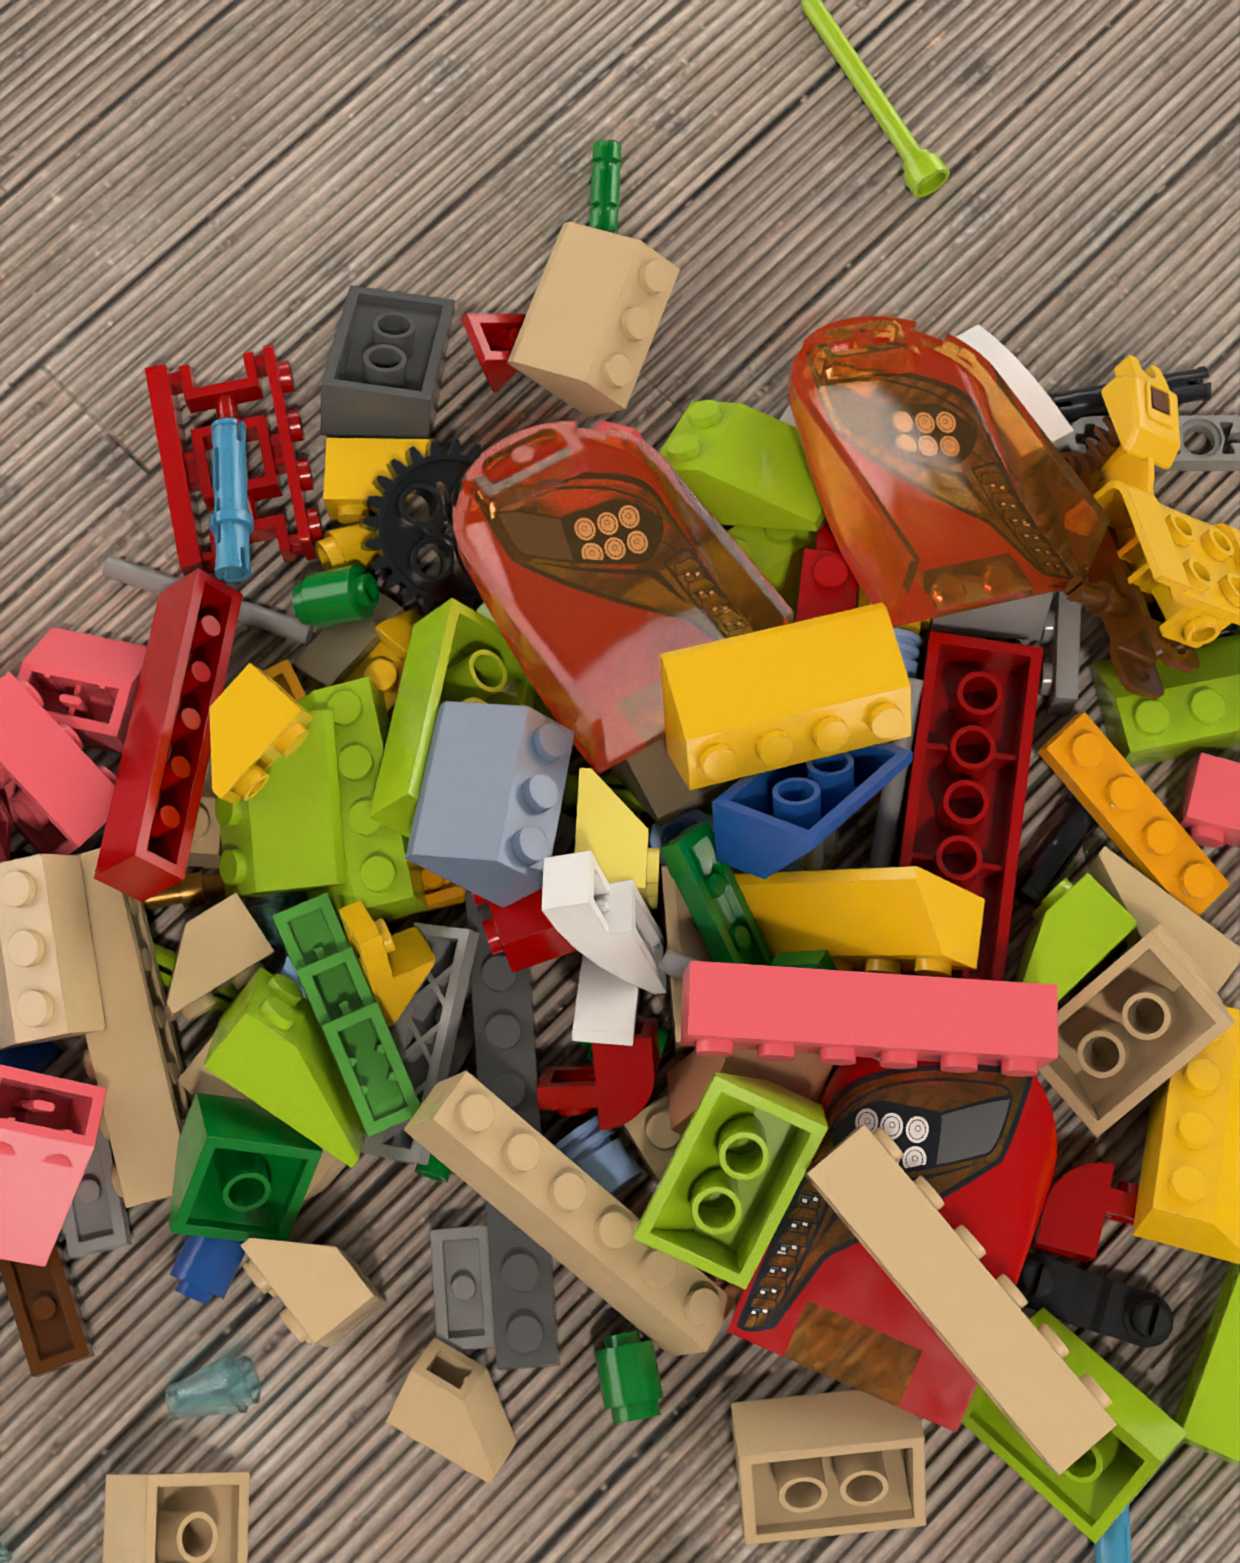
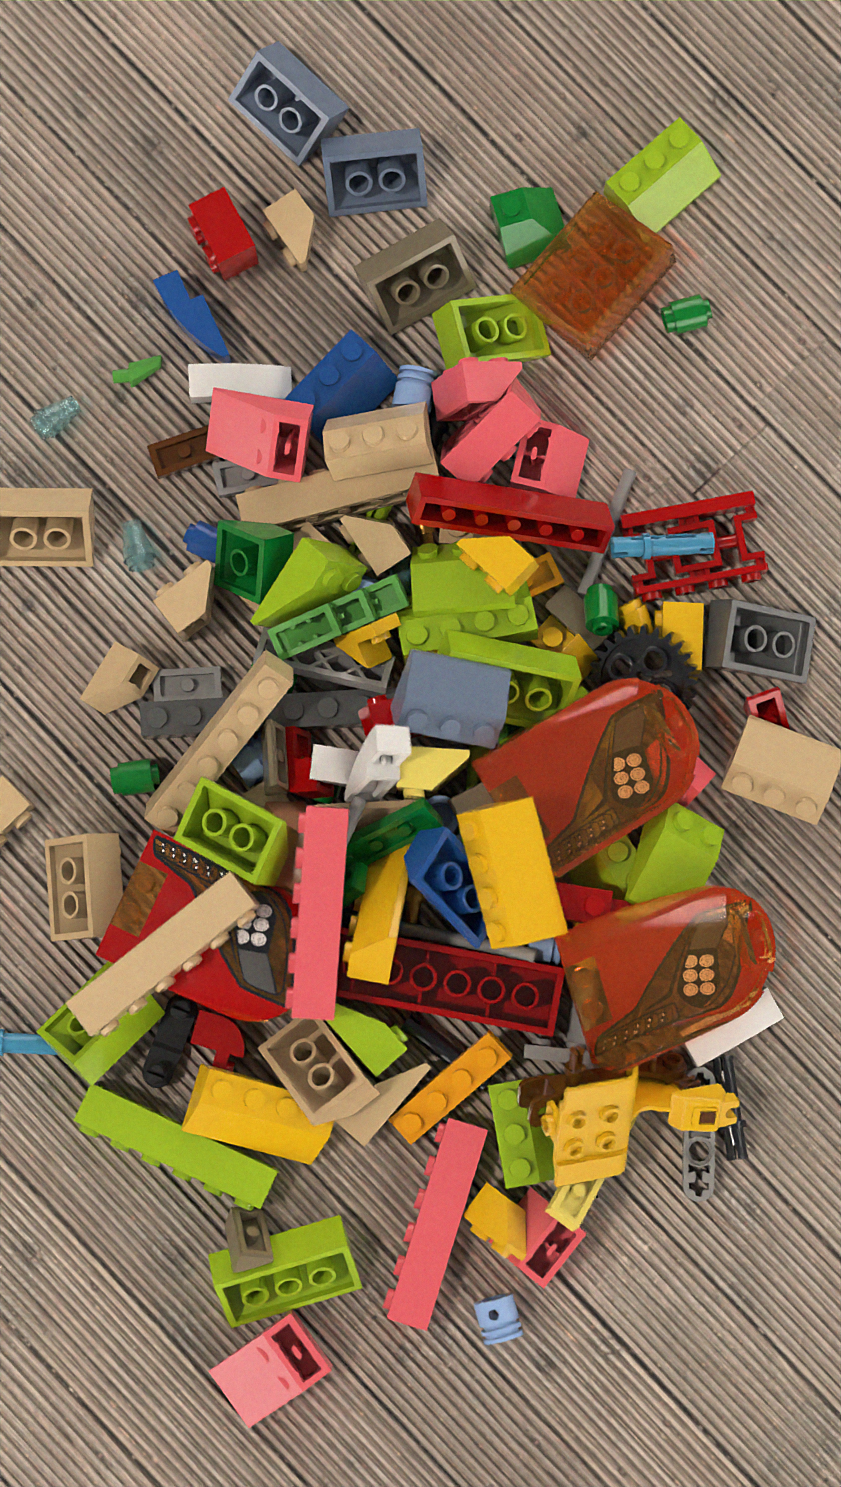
camera: 90 degrees right, 10 degrees up
(597, 1119) = (274, 758): none -> dark tan slope

